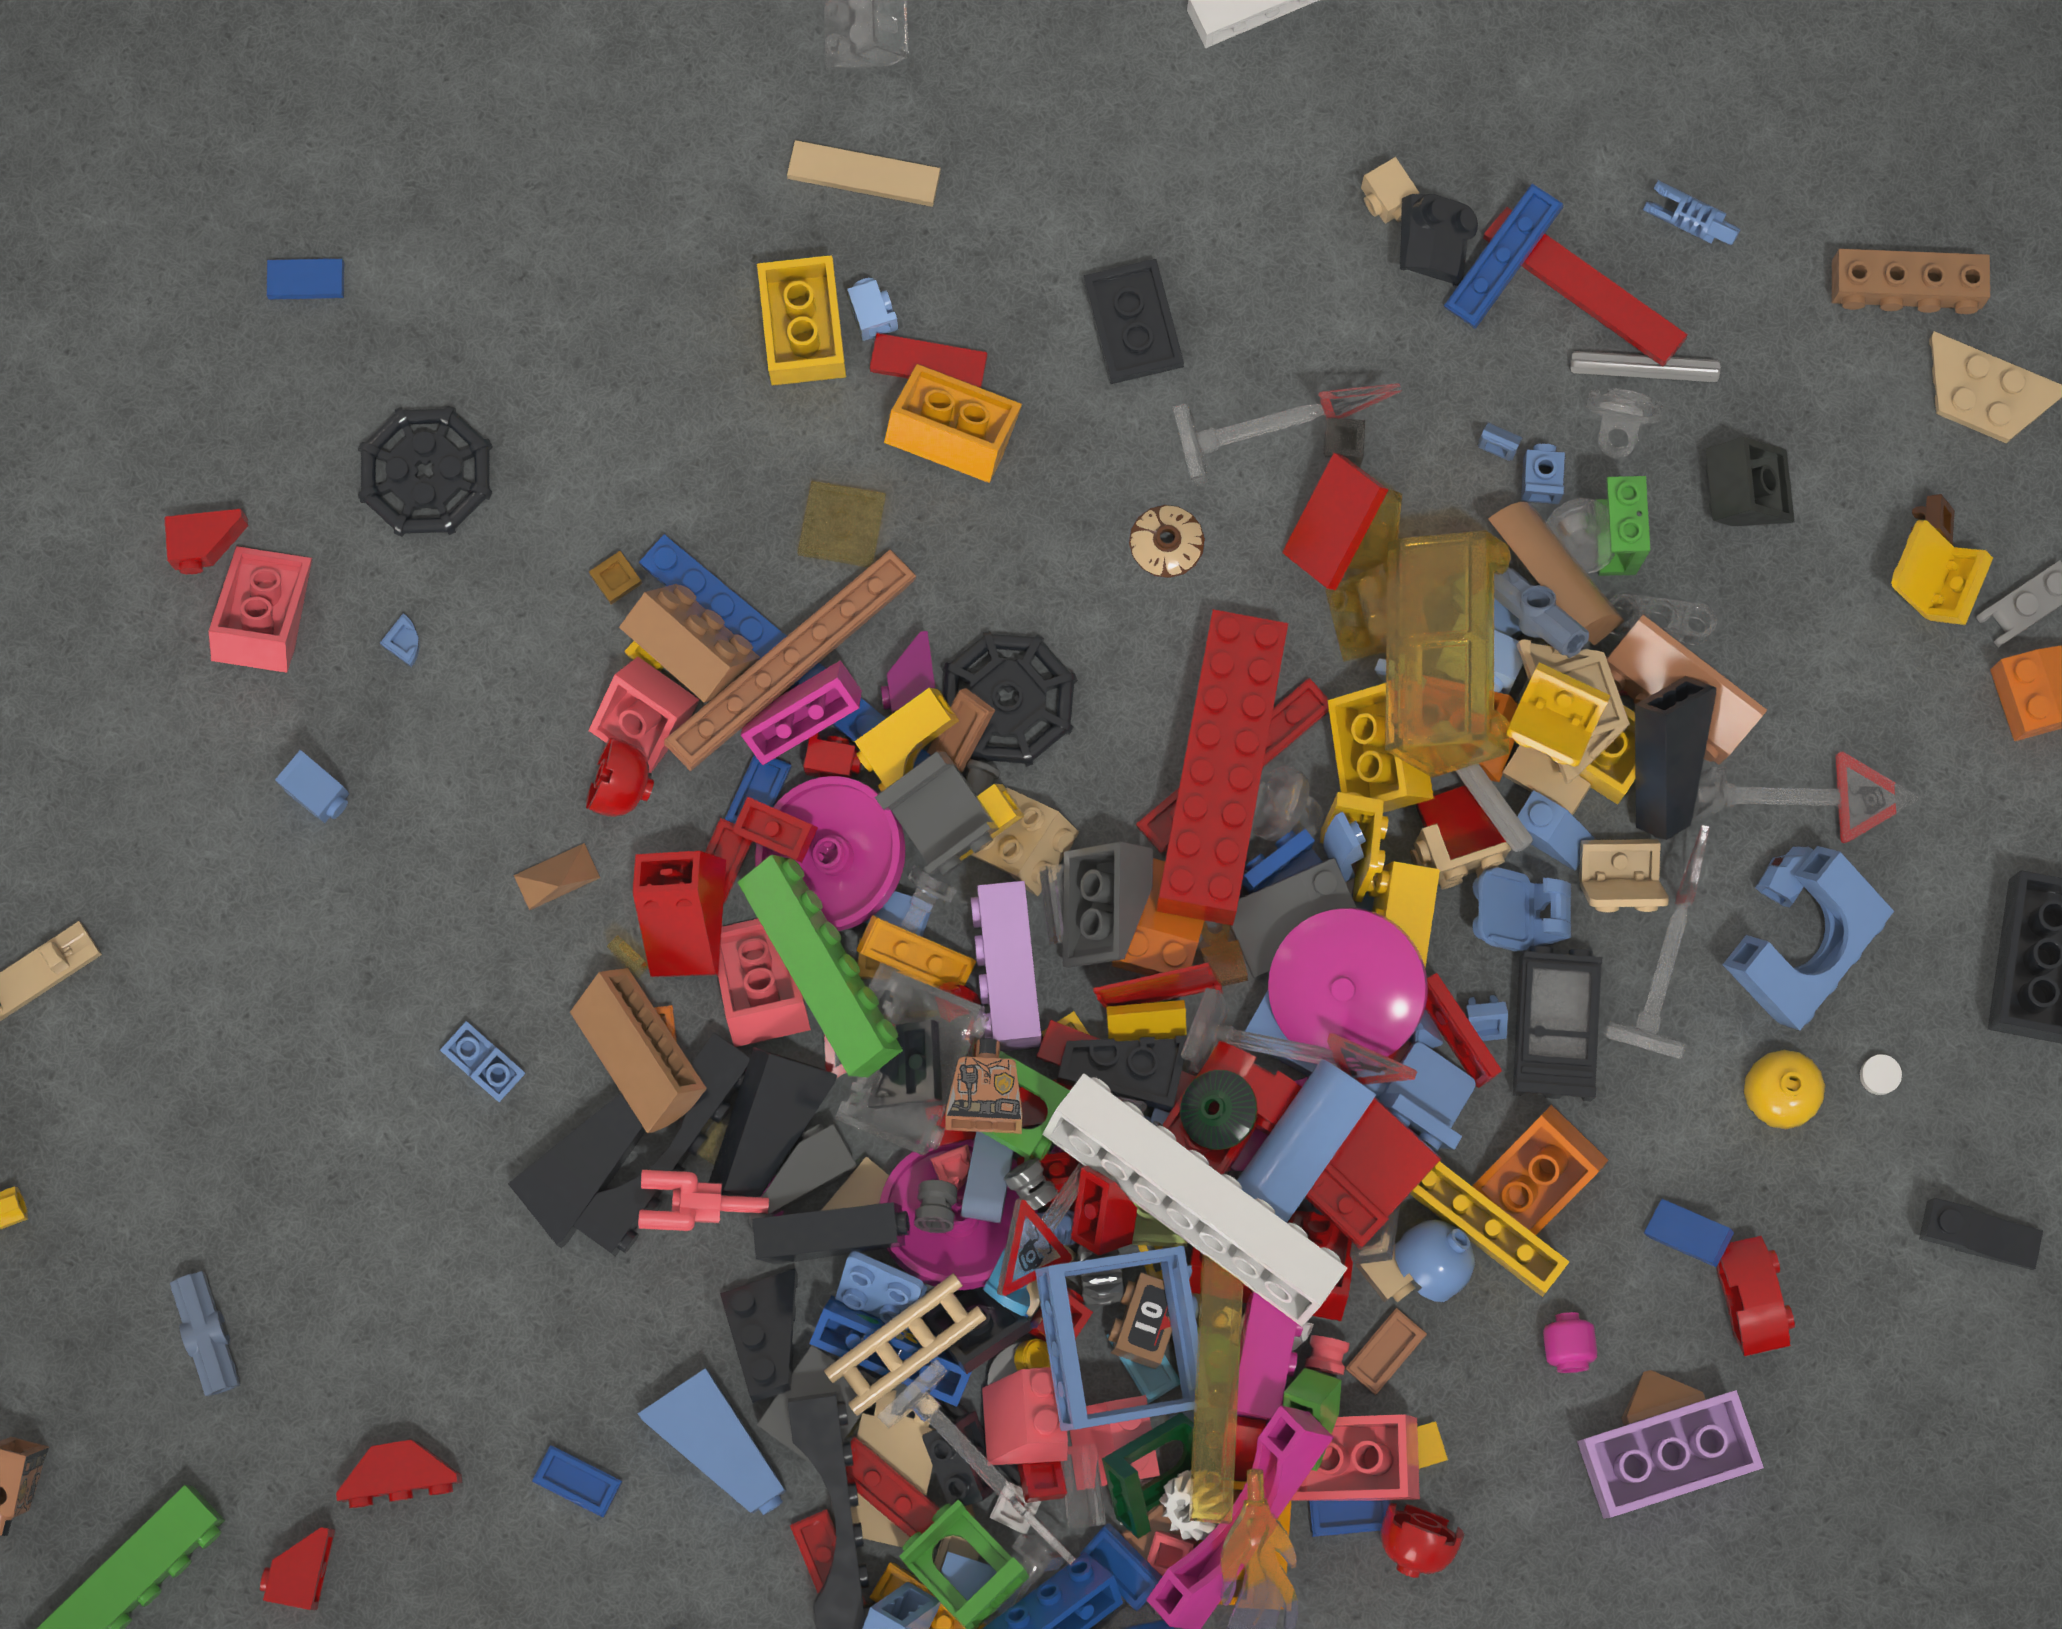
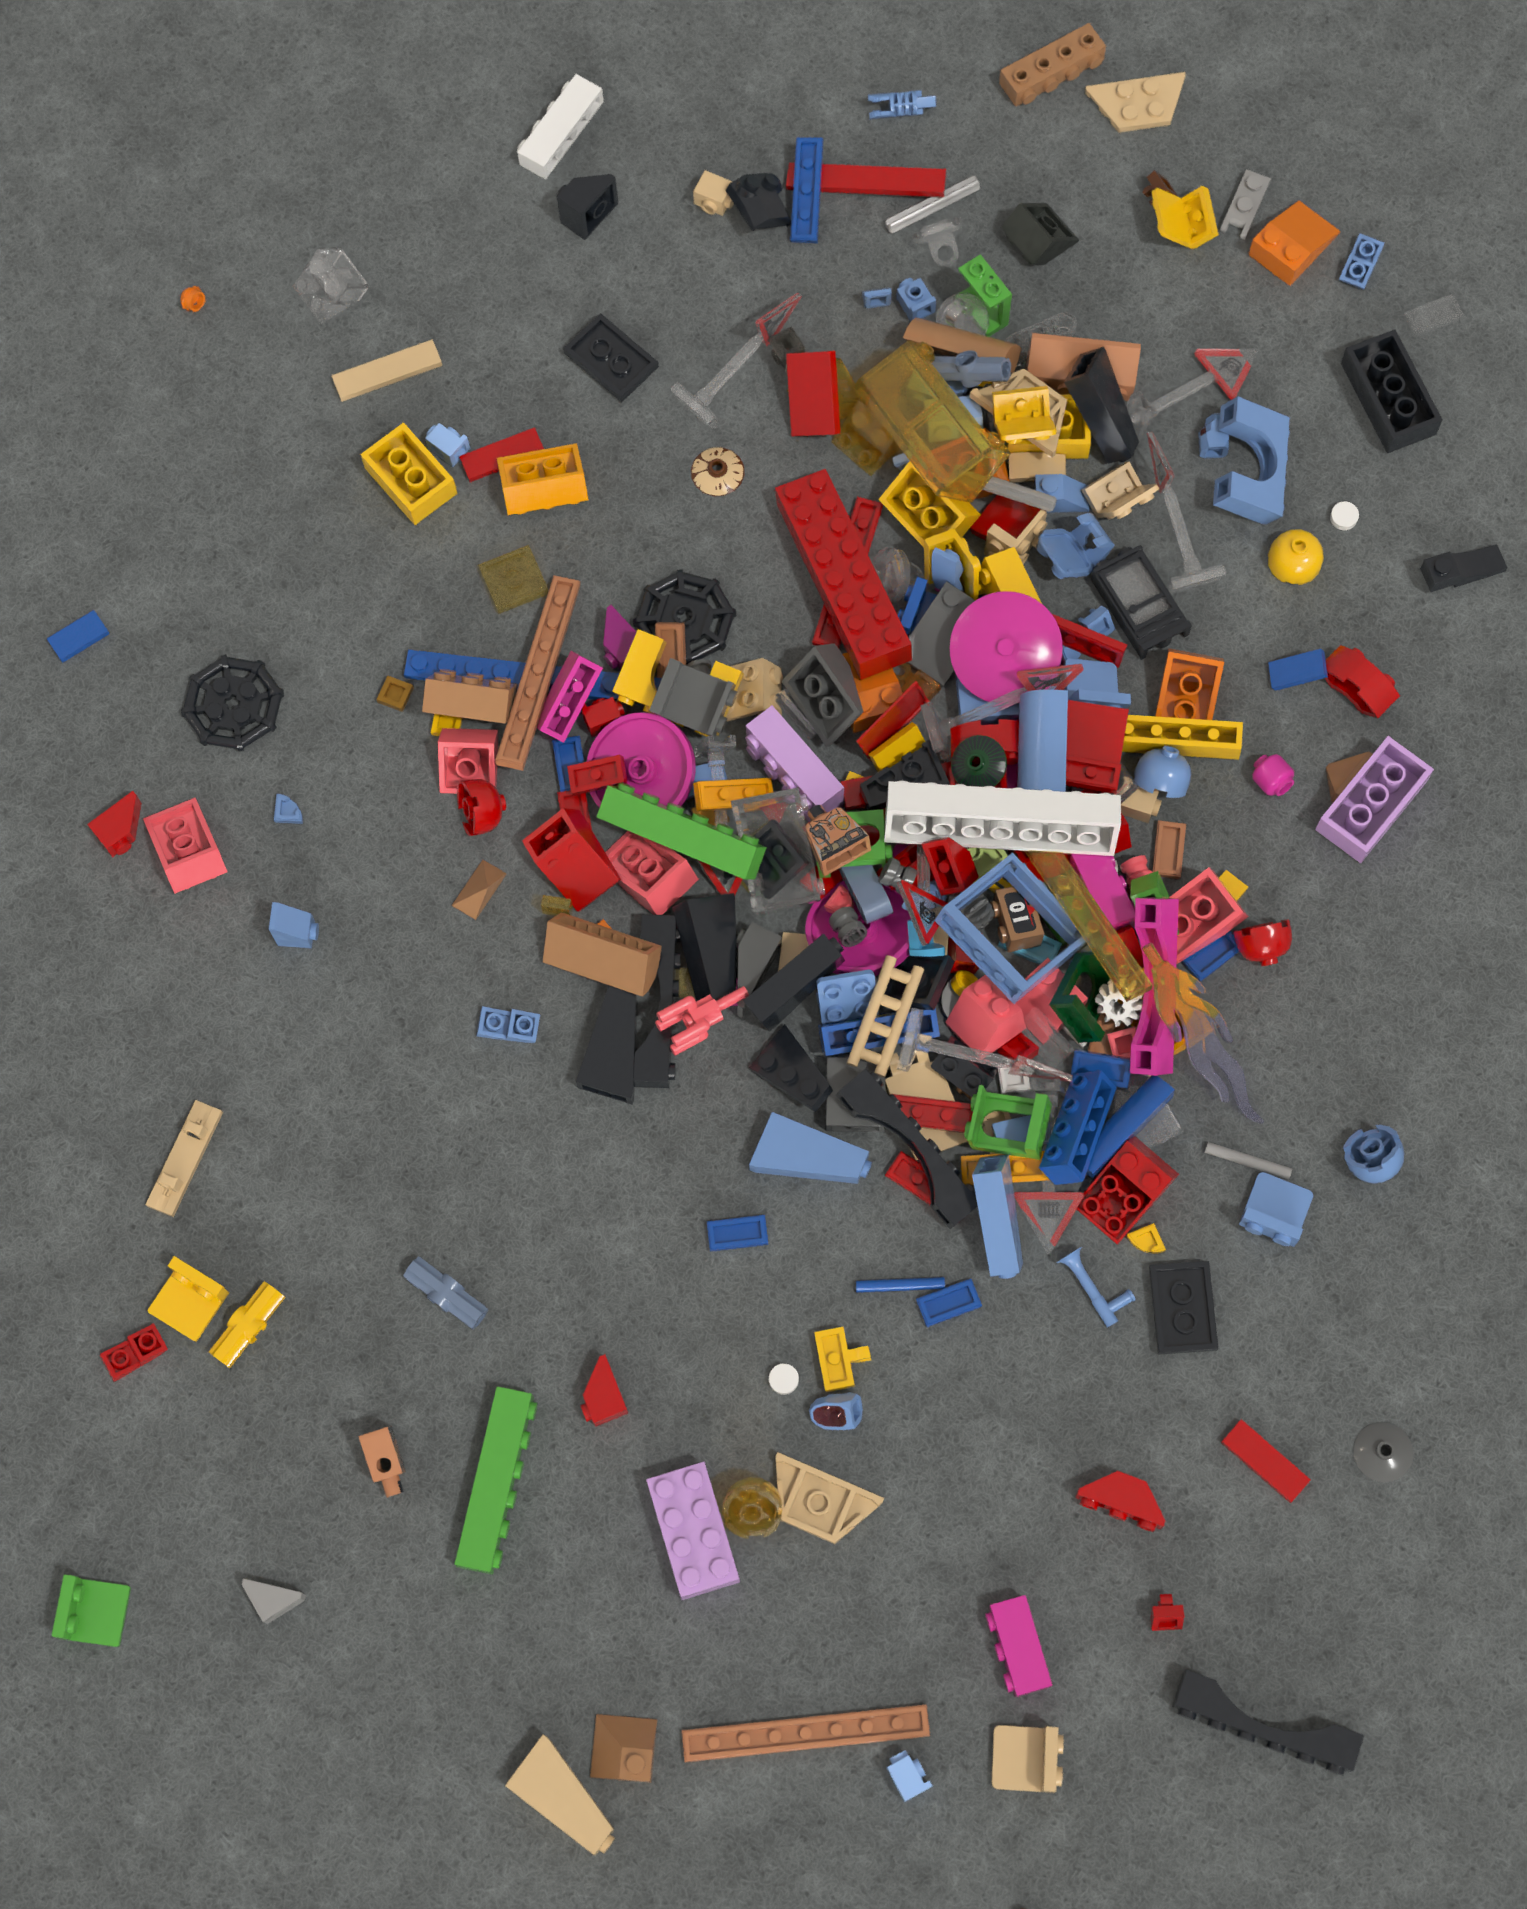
camera: 30 degrees left, 5 degrees down
(396, 1471) = (624, 1296): red slope -> none
(1228, 112) = (587, 202): none -> black slope

